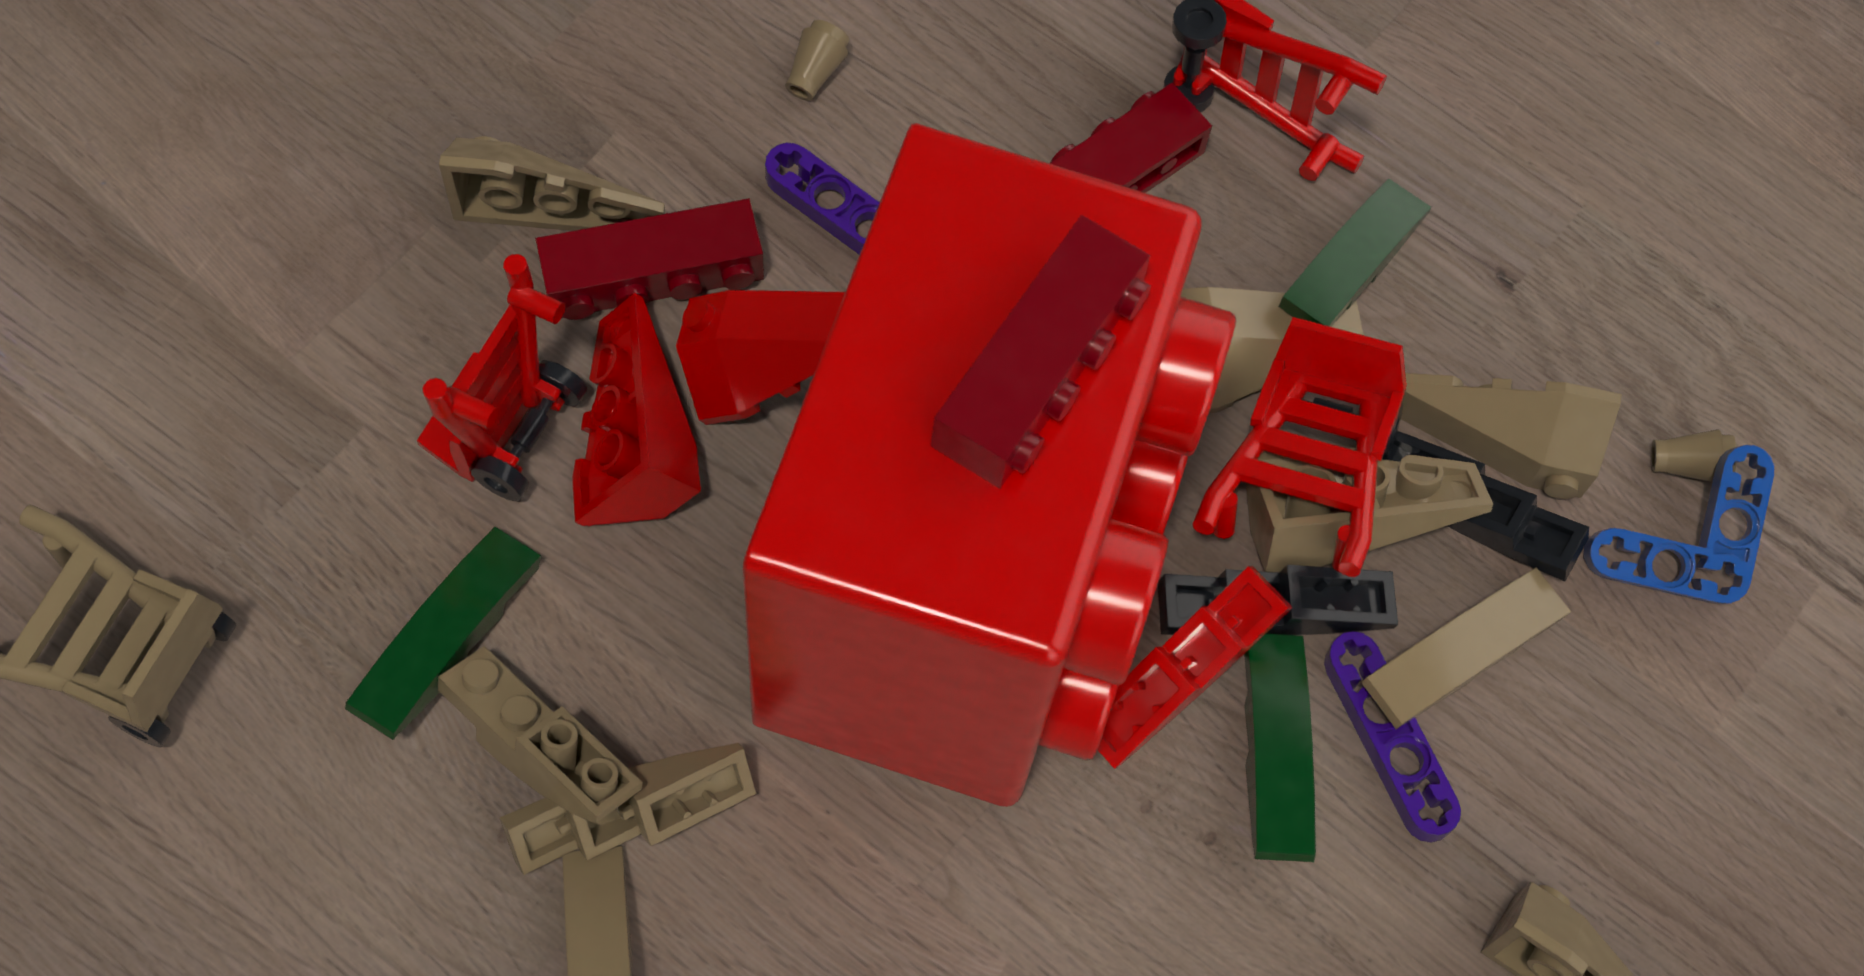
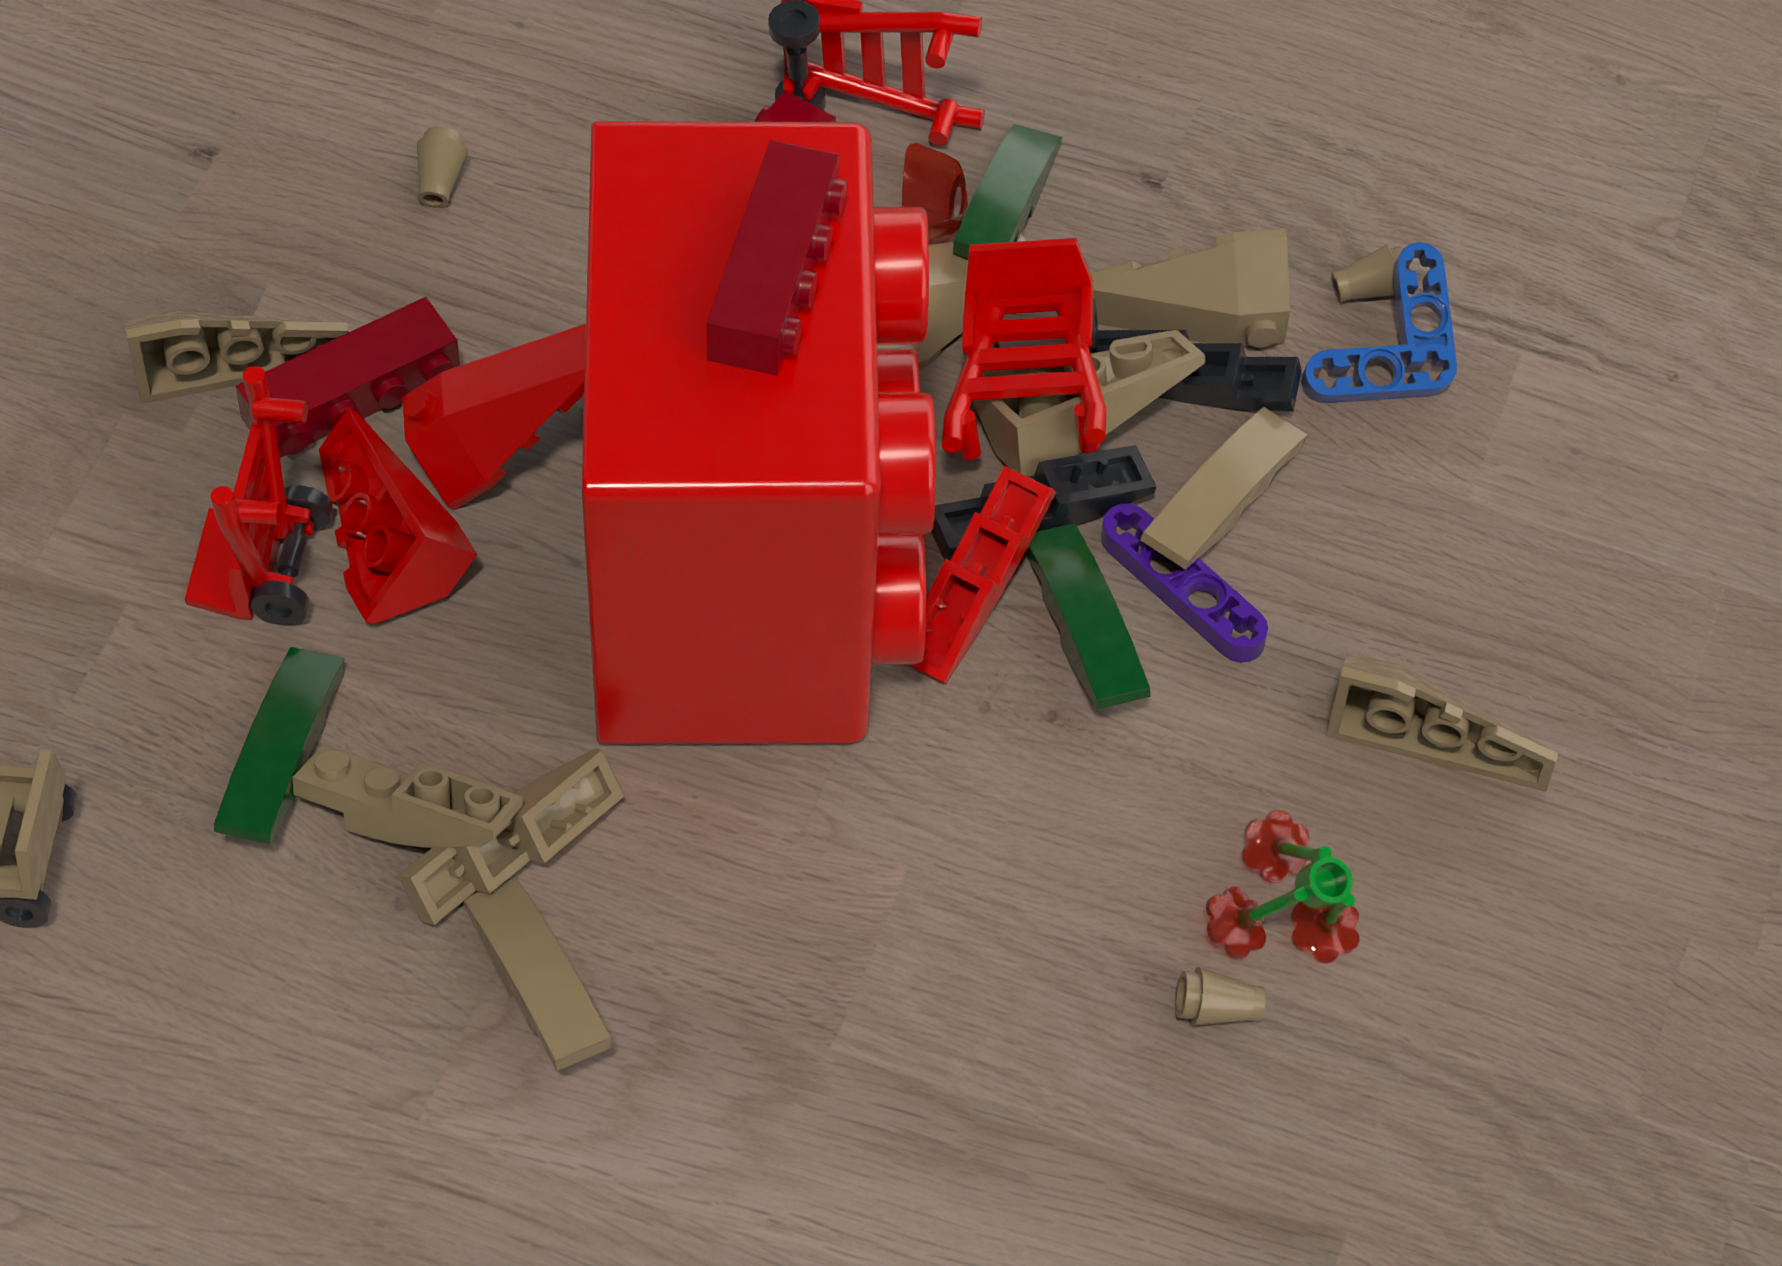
camera: 15 degrees left, 10 degrees down
(820, 177) = (513, 301): dark purple beam -> none
(1276, 237) = (932, 183): none -> clear red piece

